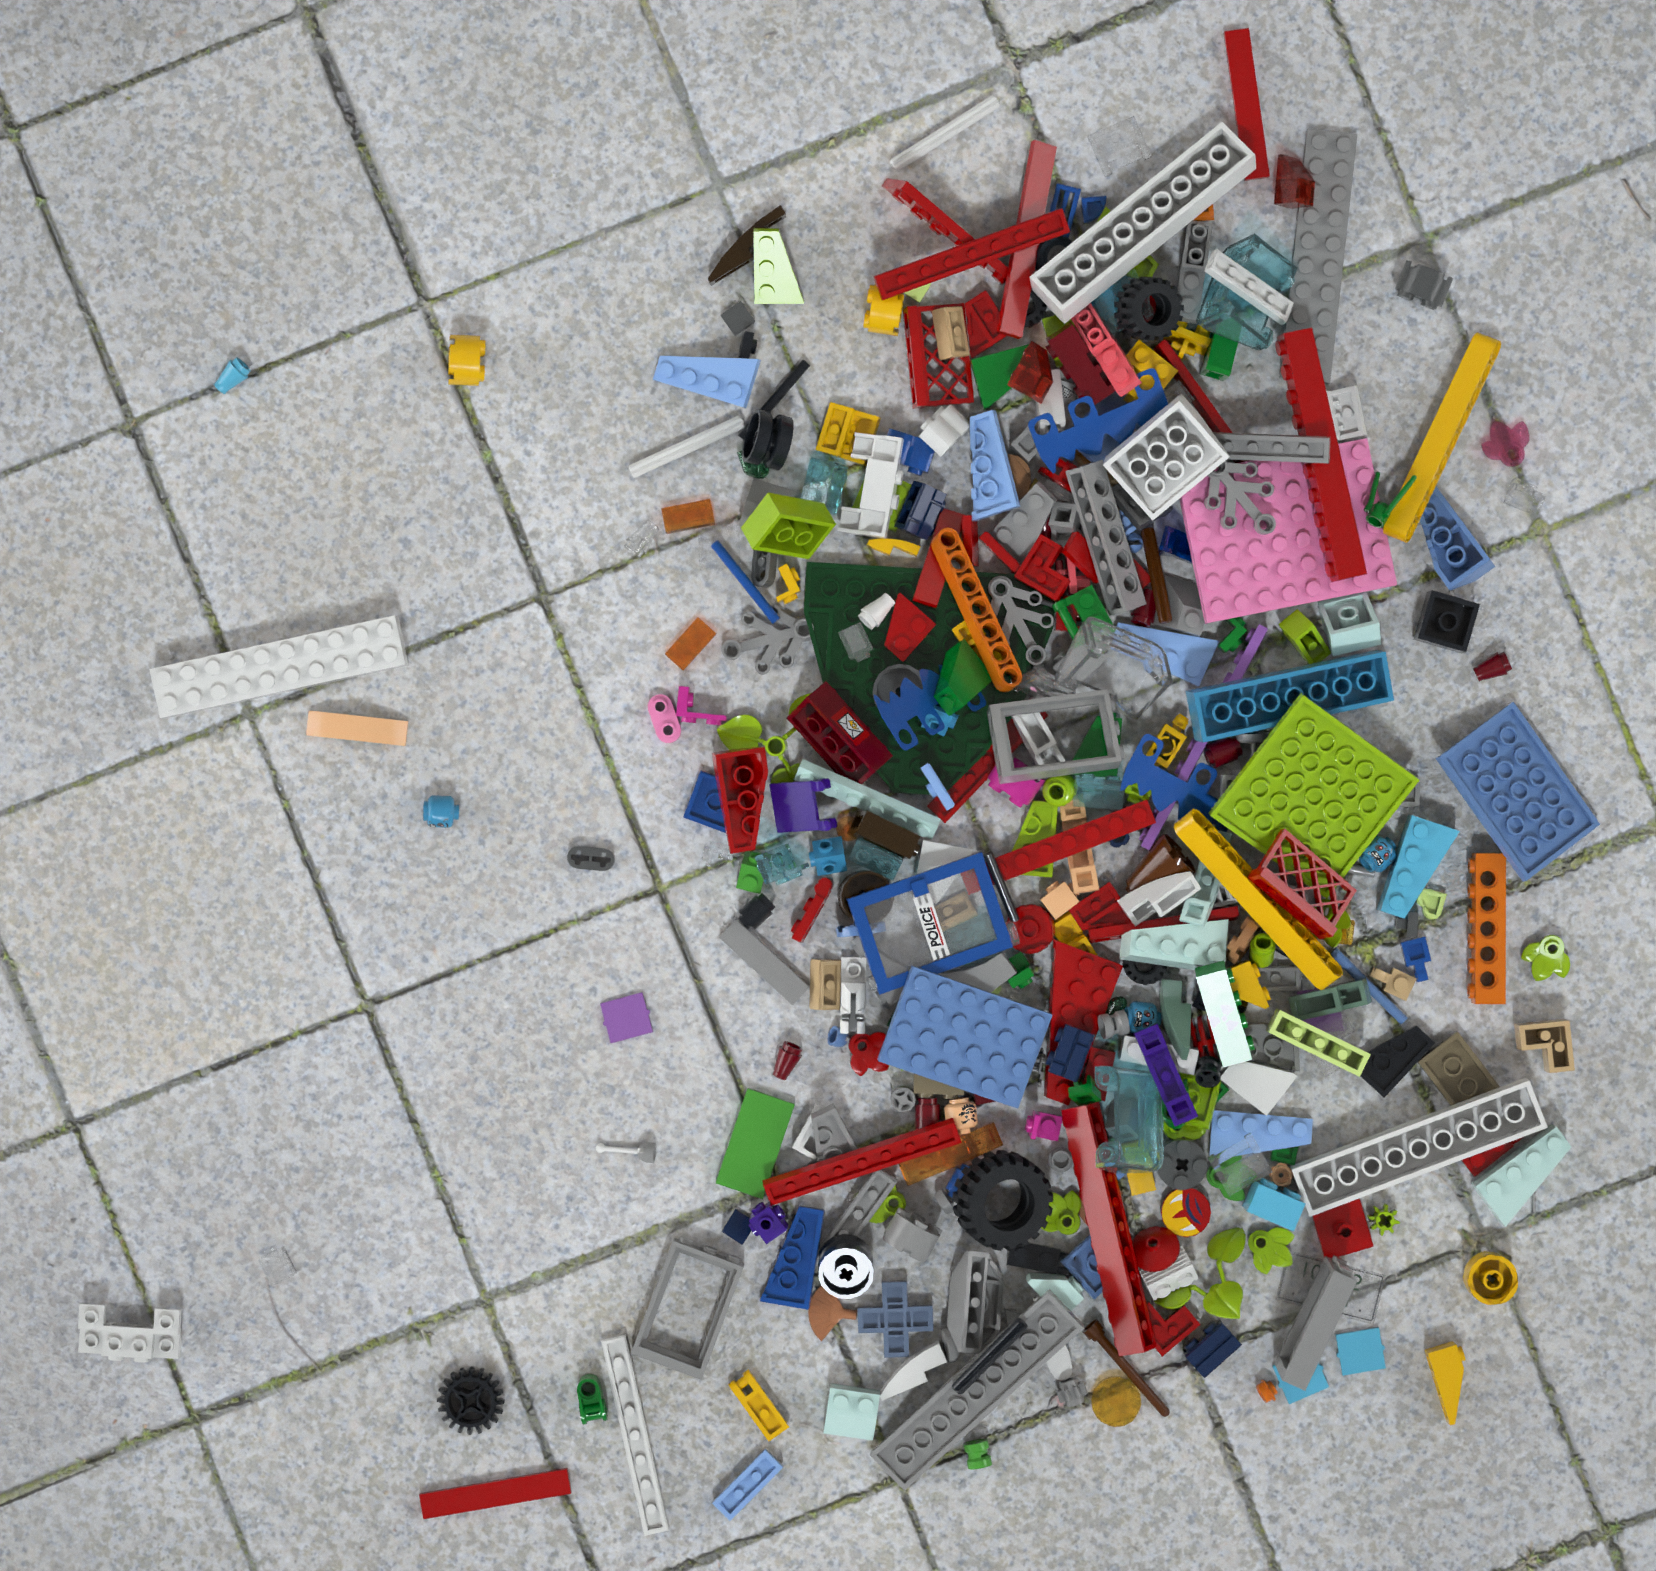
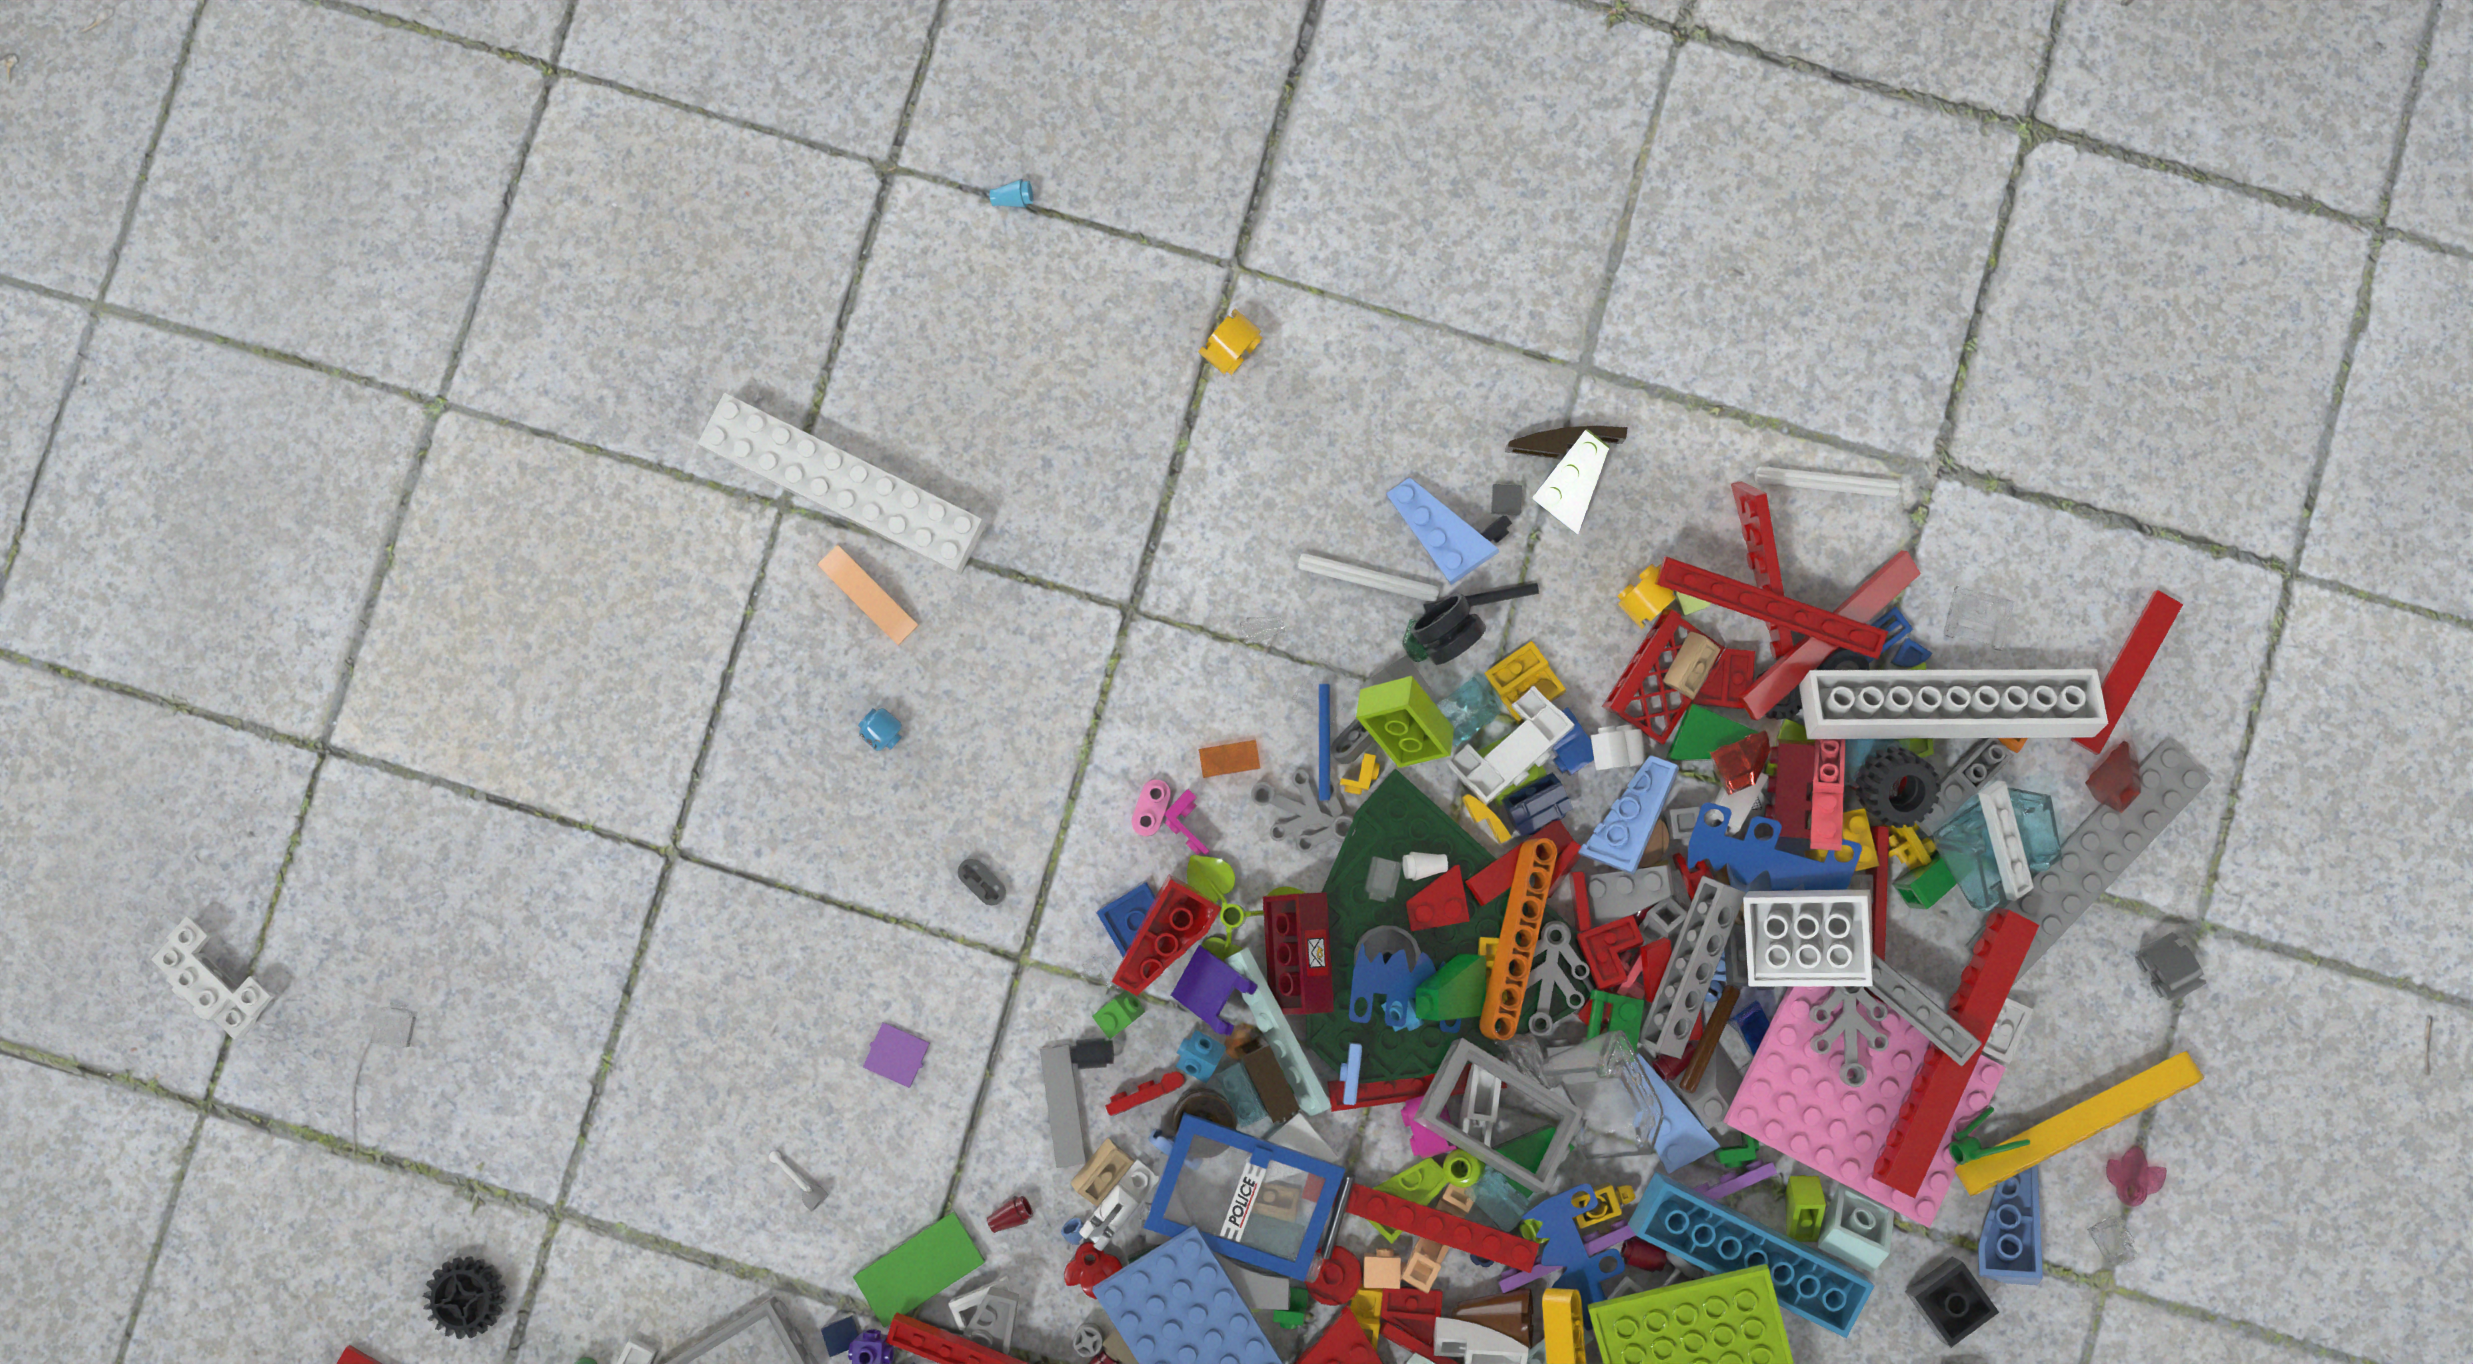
camera: 40 degrees right, 5 degrees down
(688, 516) = (1319, 641): clear orange tile -> none
(779, 865) = (1147, 1028): clear light blue bracket -> none

